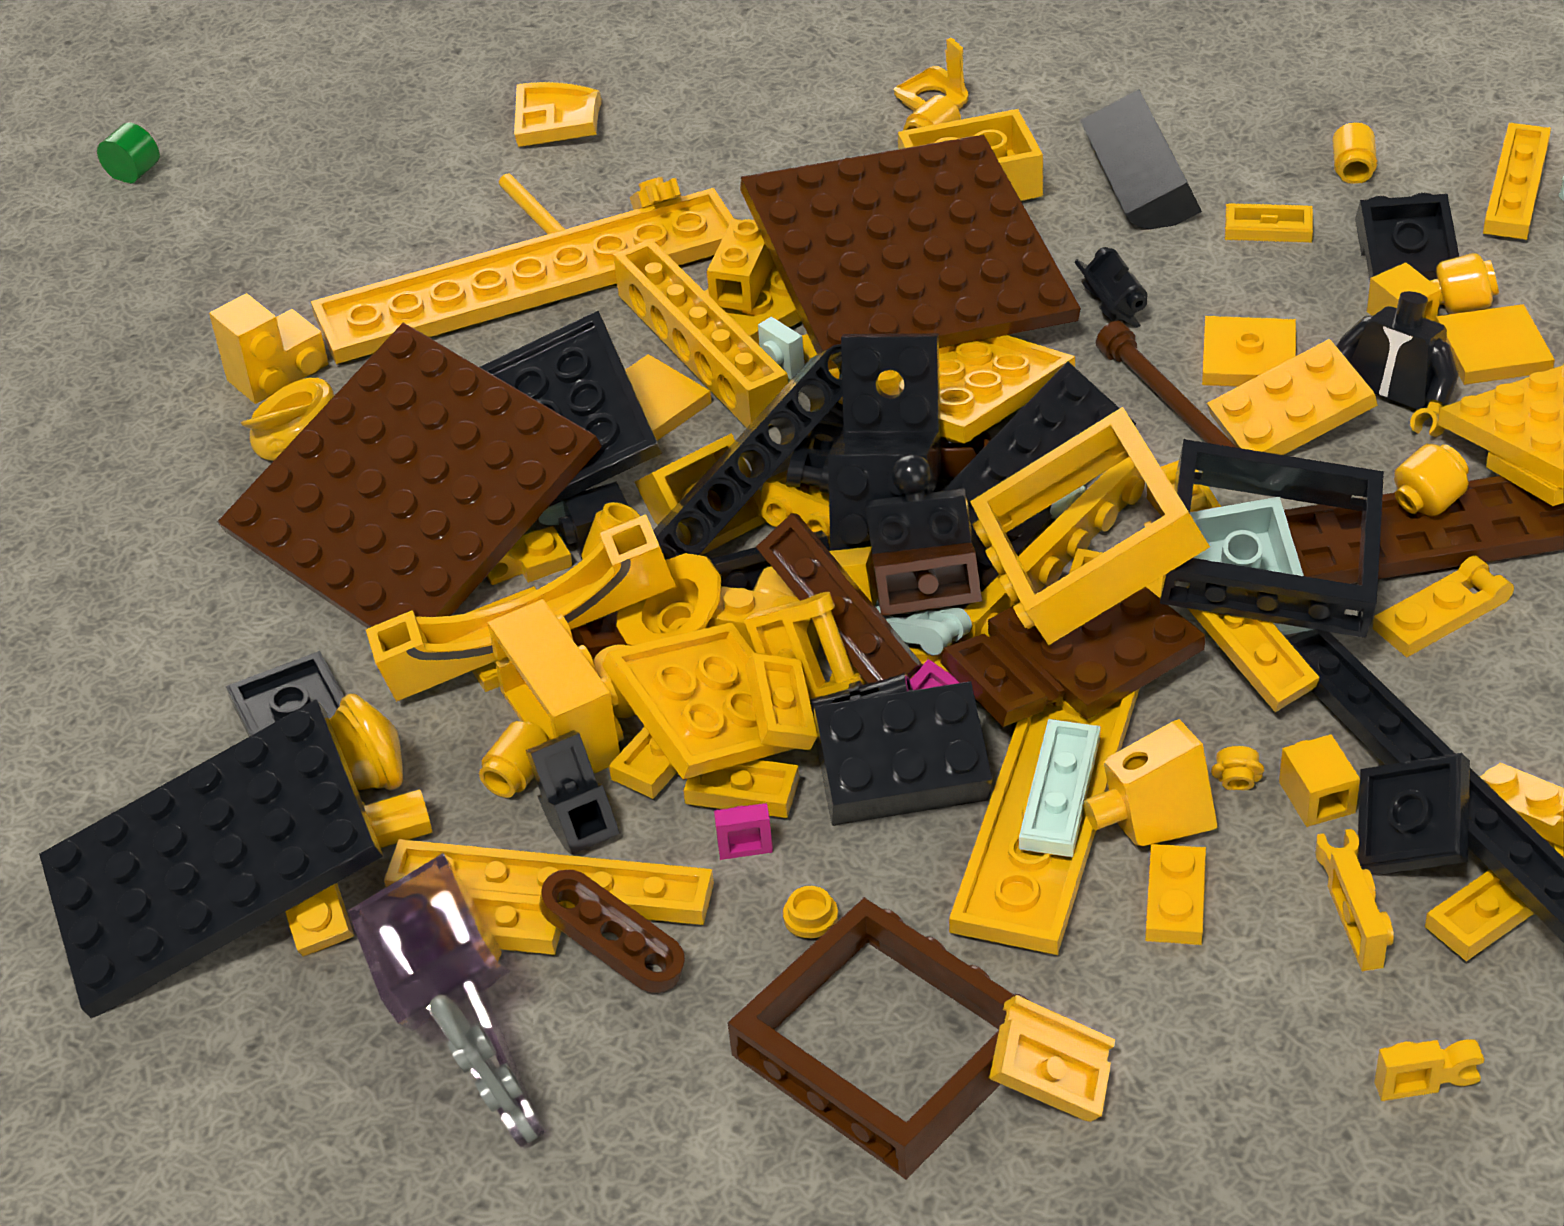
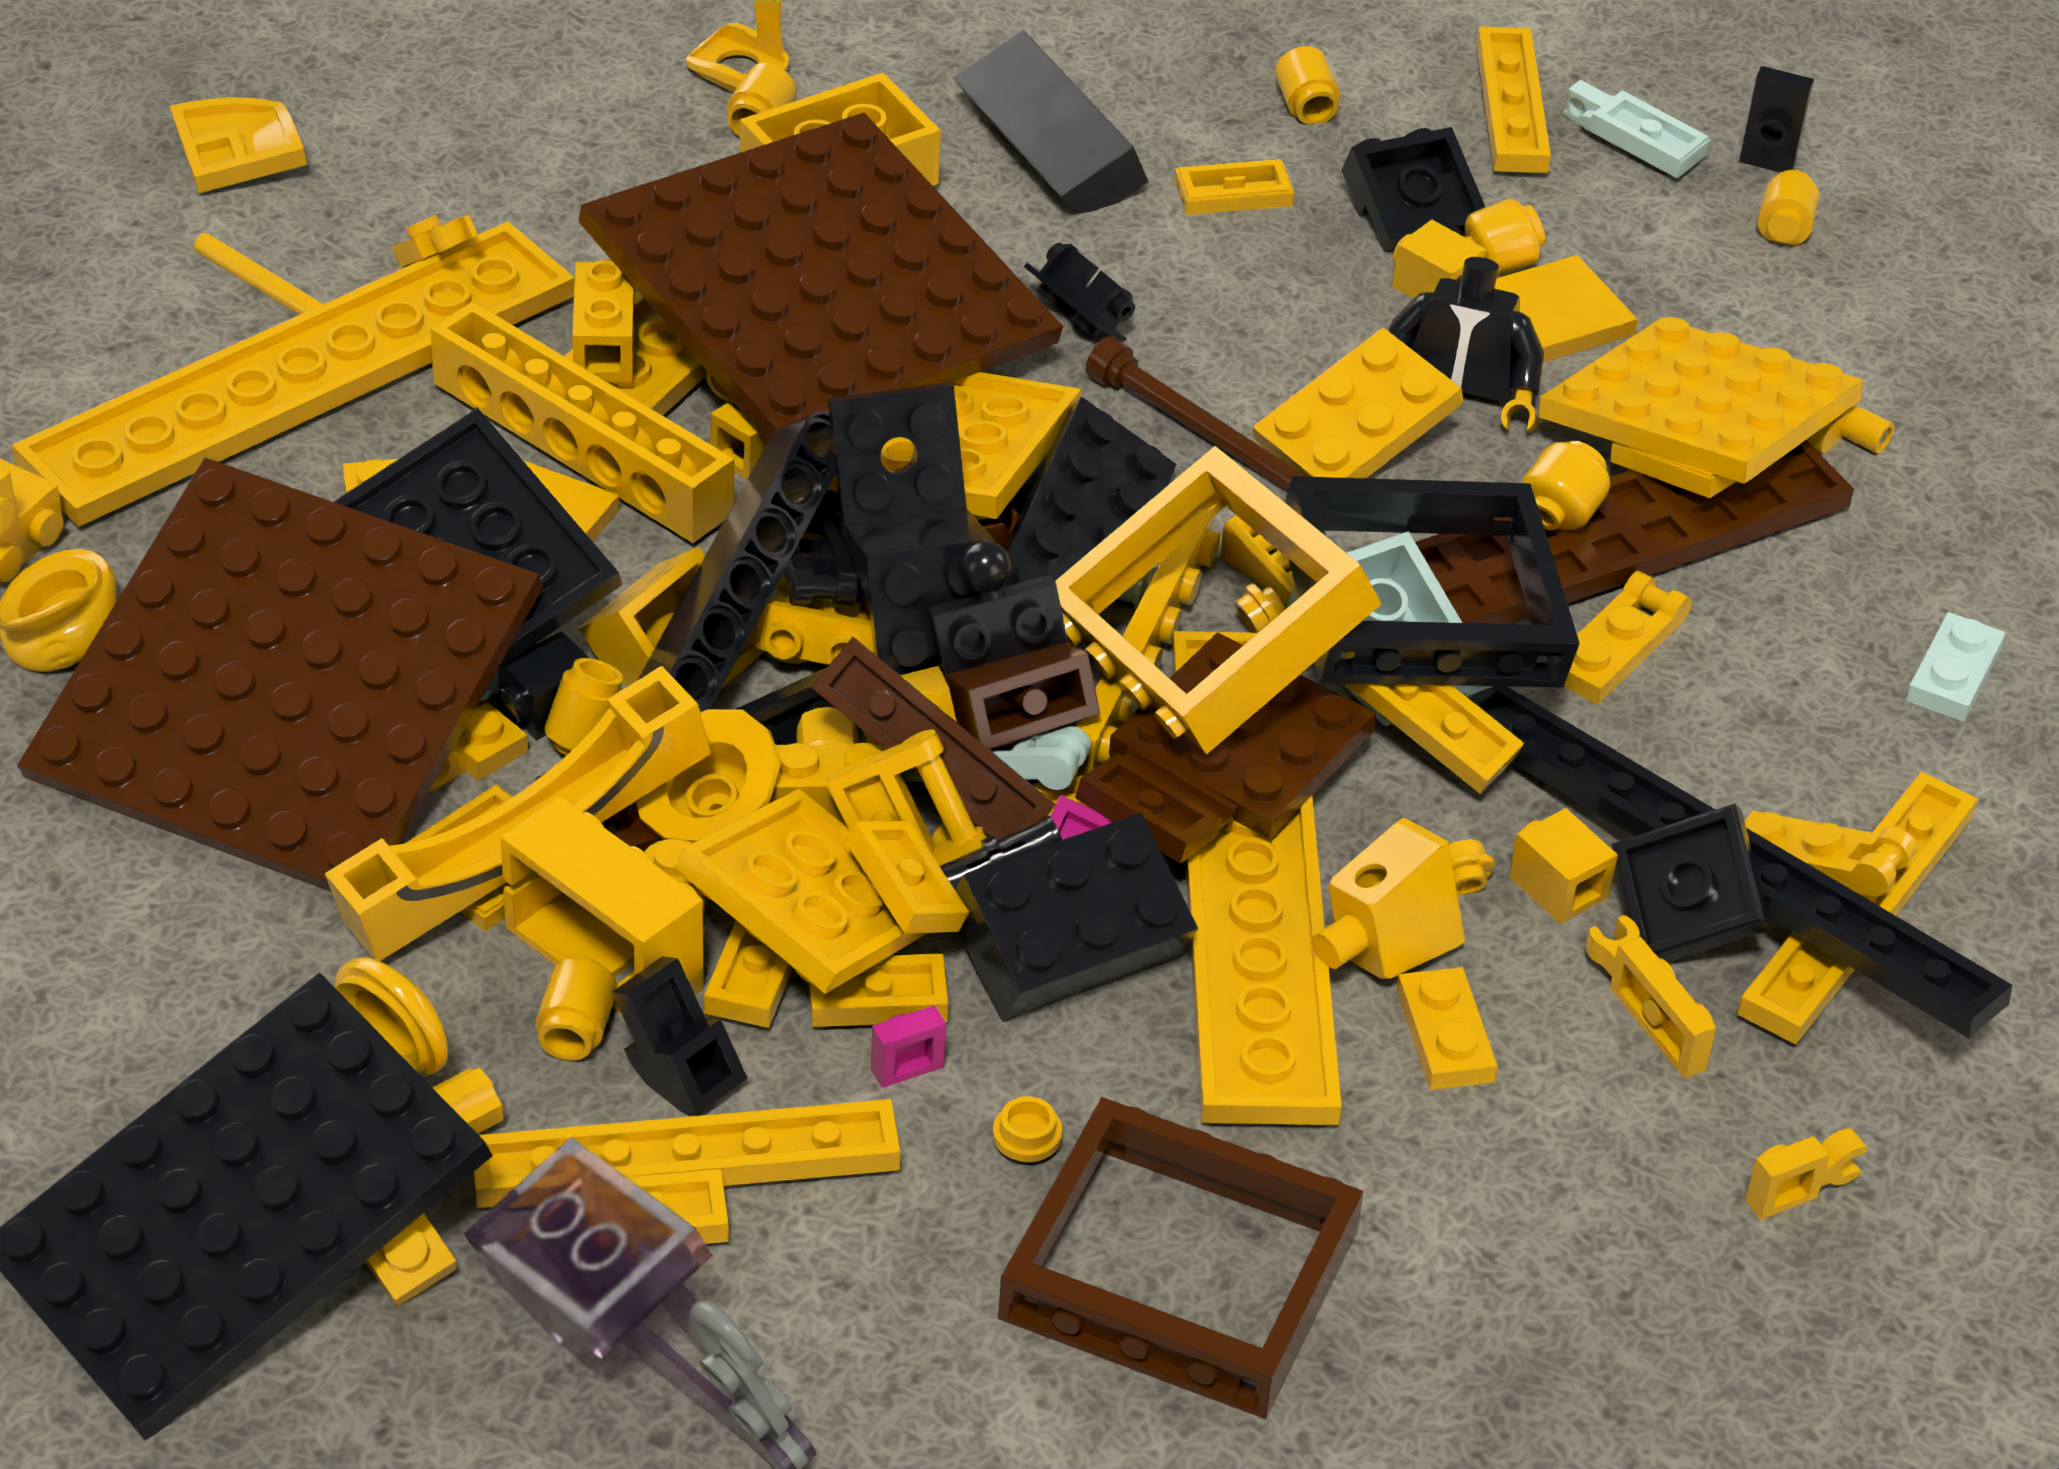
camera: 25 degrees left, 0 degrees up
(284, 689) = (221, 985): tile -> none
(601, 912) = (777, 1177): reddish brown plate -> none
(782, 345) = (709, 419): light aqua plate -> none
(1052, 1059) = (1395, 1243): yellow plate -> none
(1059, 788) = (1275, 925): light aqua tile -> none
(1245, 348) = (1269, 352): yellow plate -> none

